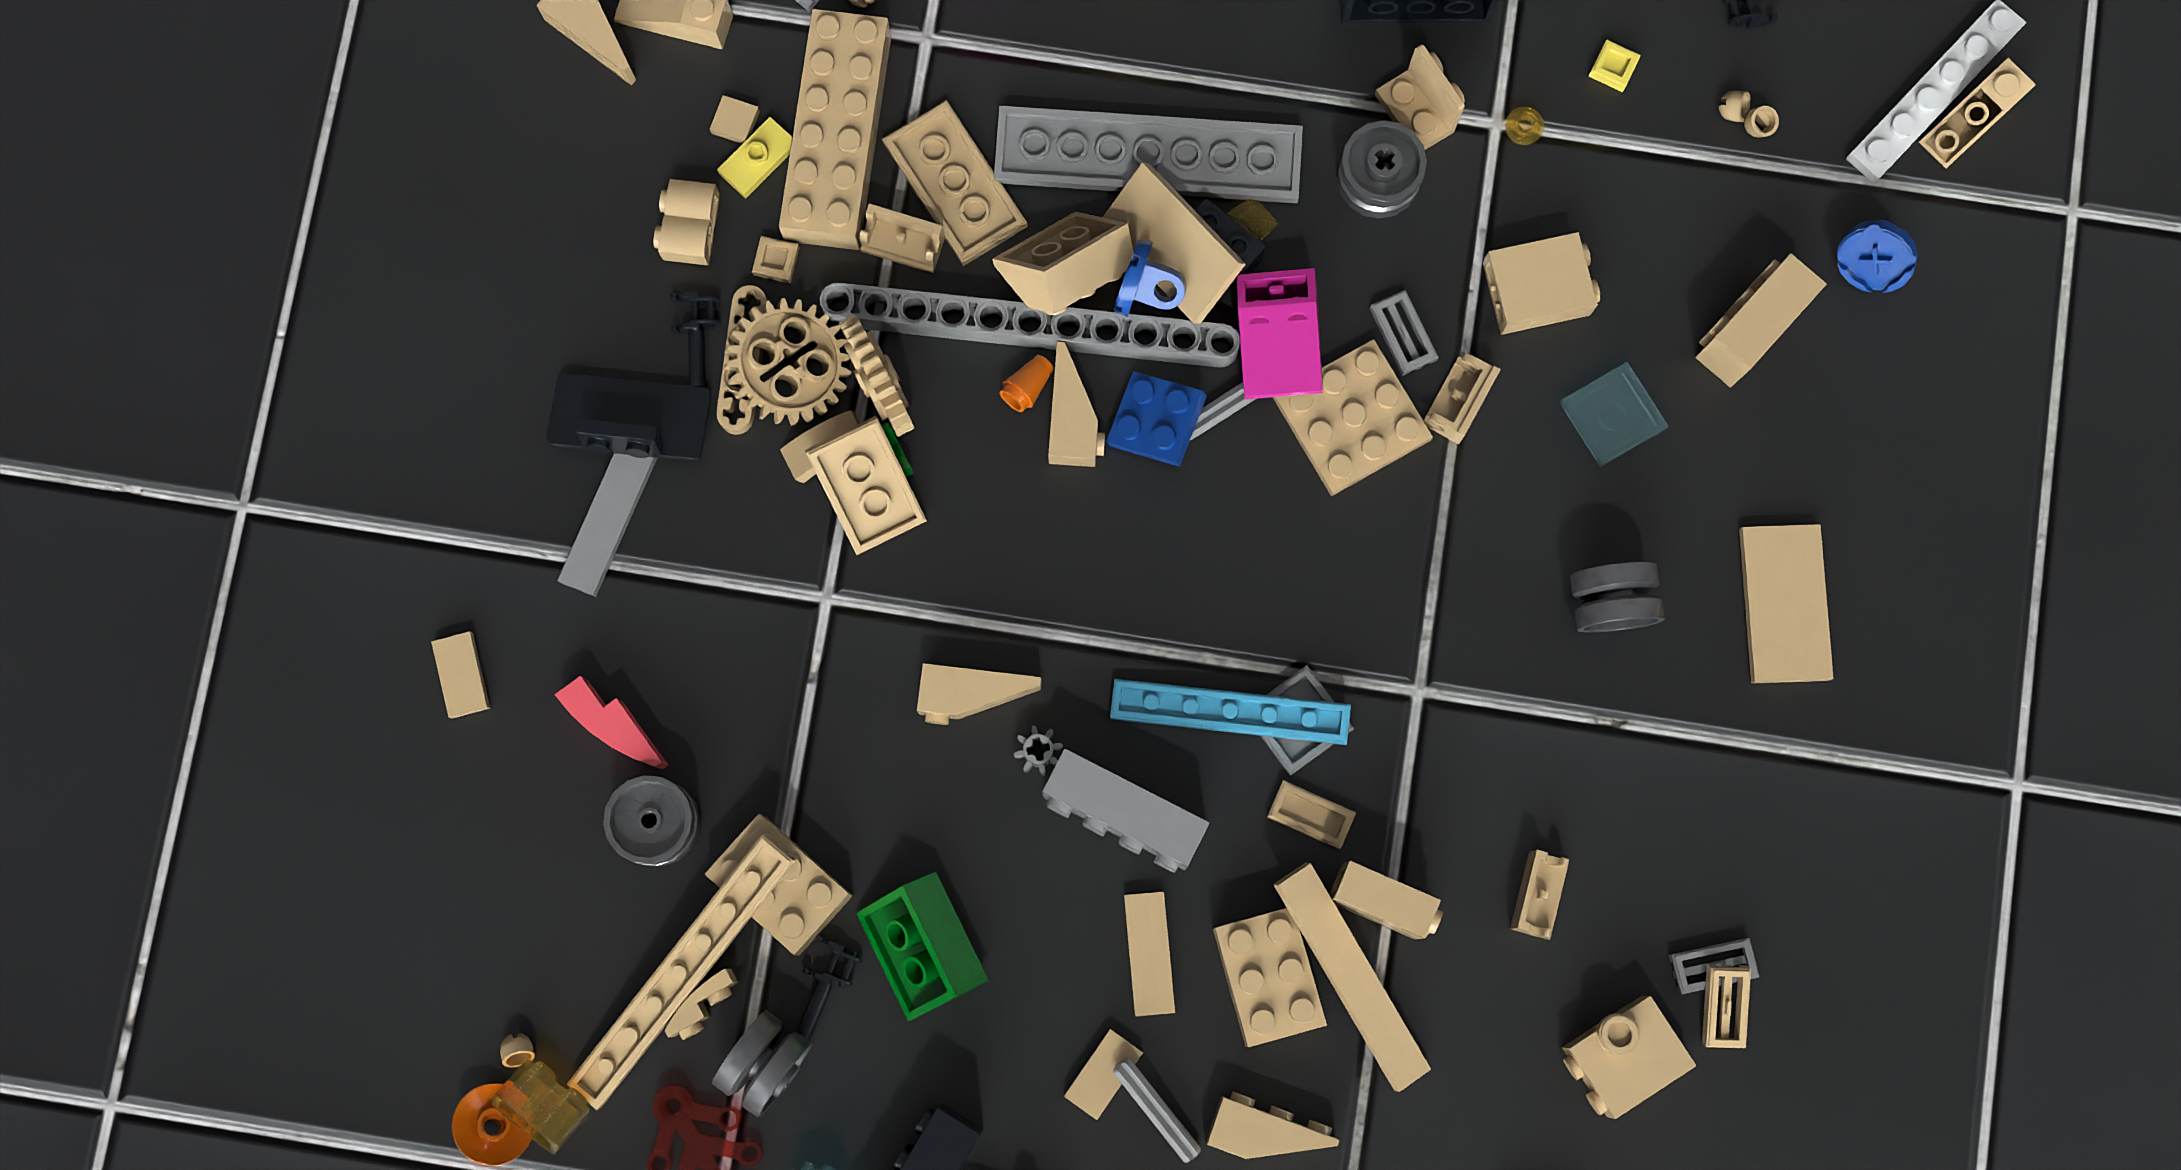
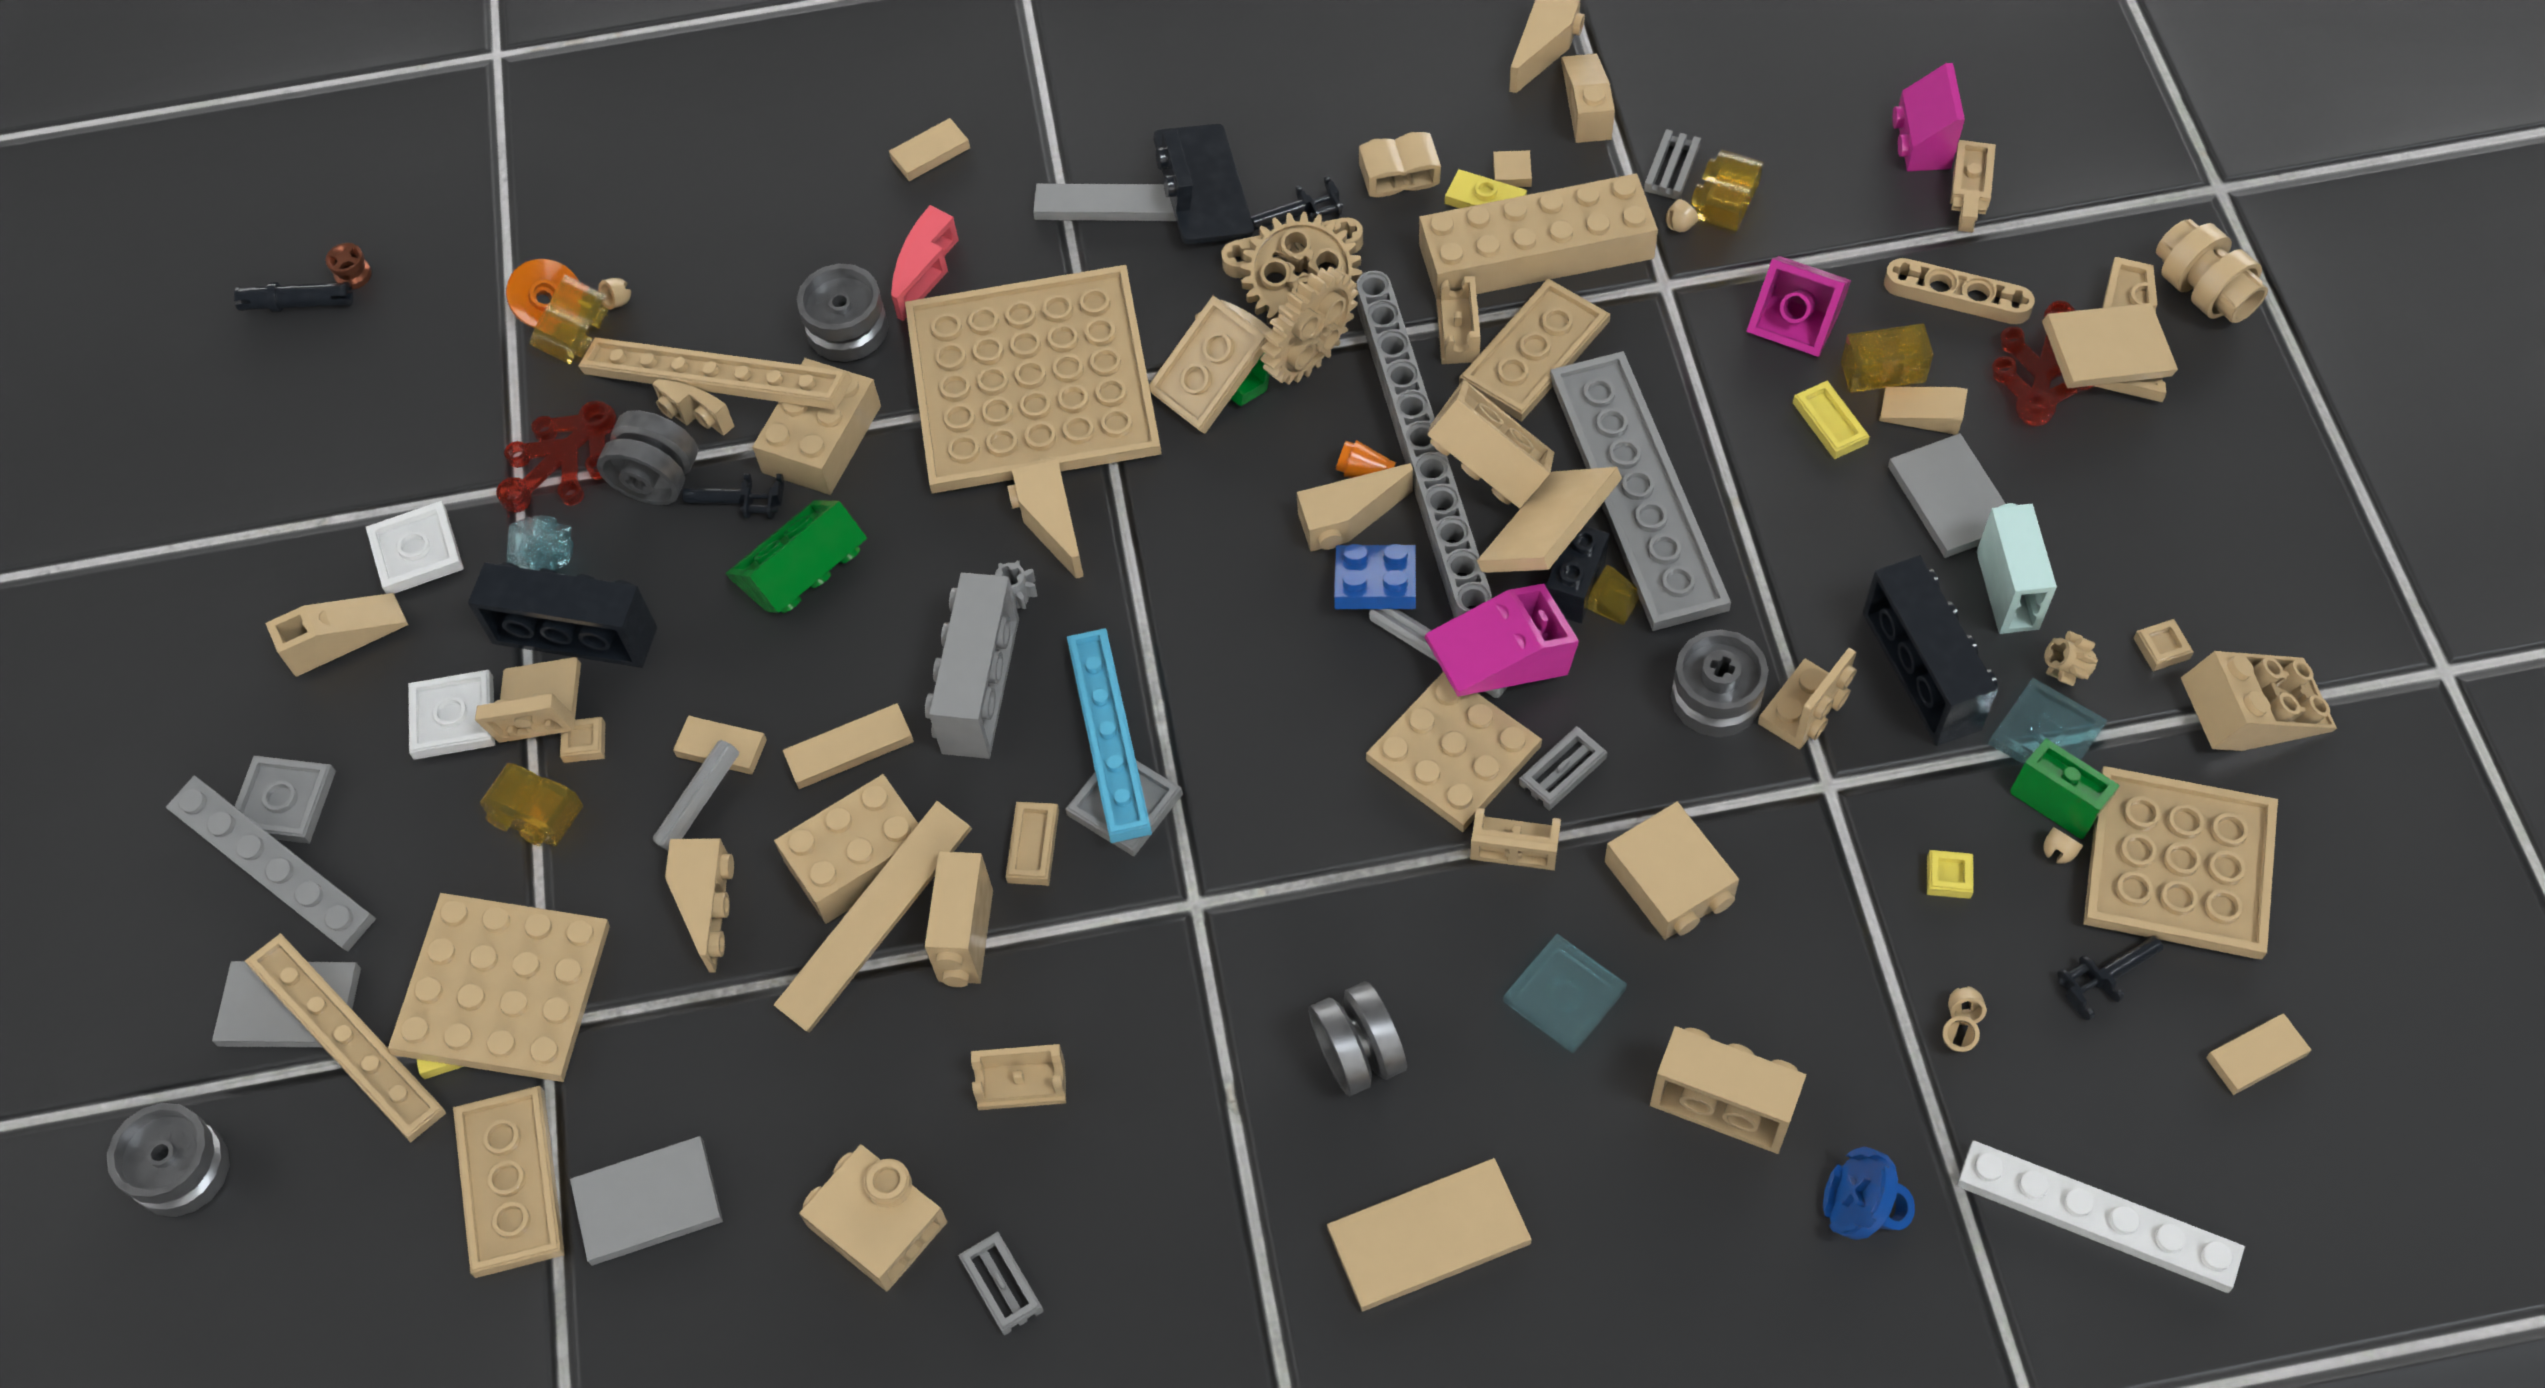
camera: 75 degrees right, 20 degrees down
(775, 259) = (1397, 241): tan tile -> none
(799, 660) = (1030, 378): none -> tan plate
(1141, 282) = (1495, 495): tile -> none
(1520, 135) = (1837, 817): clear yellow plate -> none
(1727, 972) = (994, 1291): tan tile -> none
(1977, 113) = (2100, 1266): tan slope -> none

